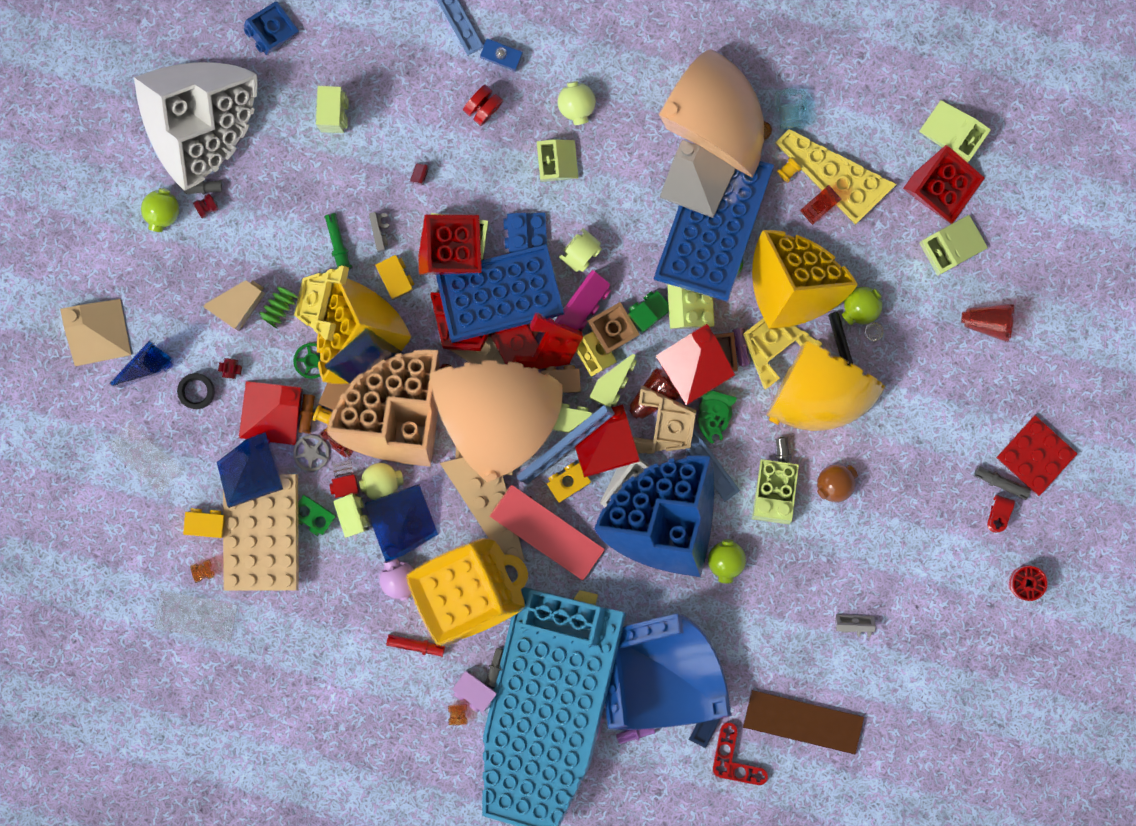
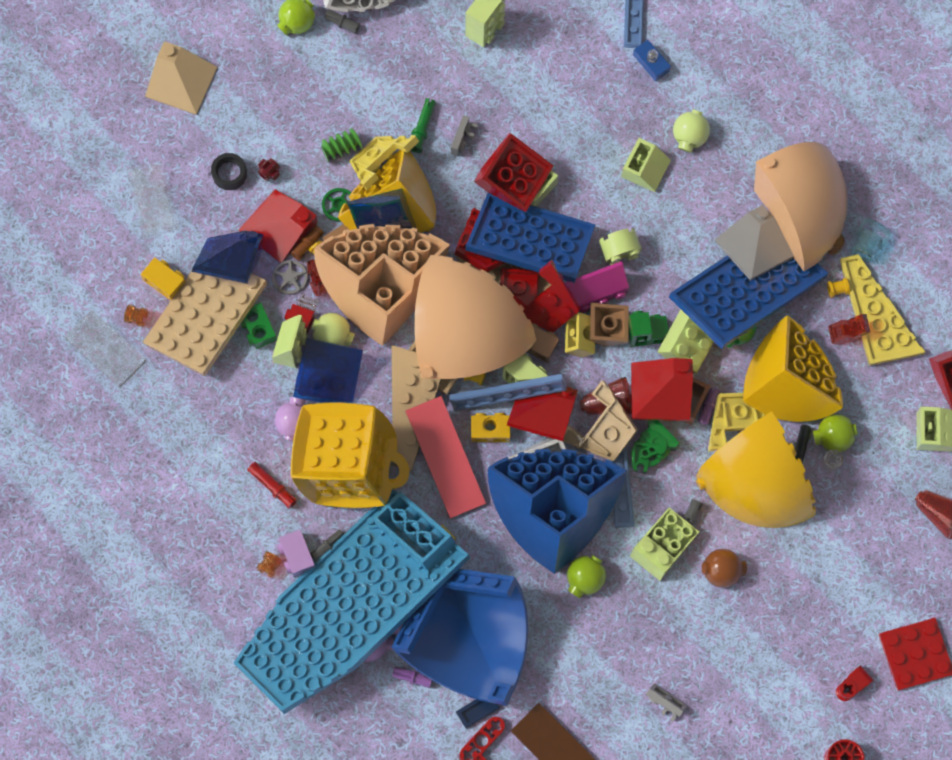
camera: 30 degrees right, 15 degrees down
(145, 364) = (198, 121): clear blue slope -> none
(205, 206) = (334, 35): dark red wheel -> none
(237, 303) = (309, 120): tan slope -> none
(394, 277) = (451, 178): yellow brick -> none
(419, 174) = (525, 113): dark red slope -> none
(483, 105) = (611, 87): red wheel -> none
(525, 231) = (584, 204): blue plate -> none
(609, 384) = (582, 365): yellowish green slope -> none
(997, 480) = (872, 659): dark grey pin -> none

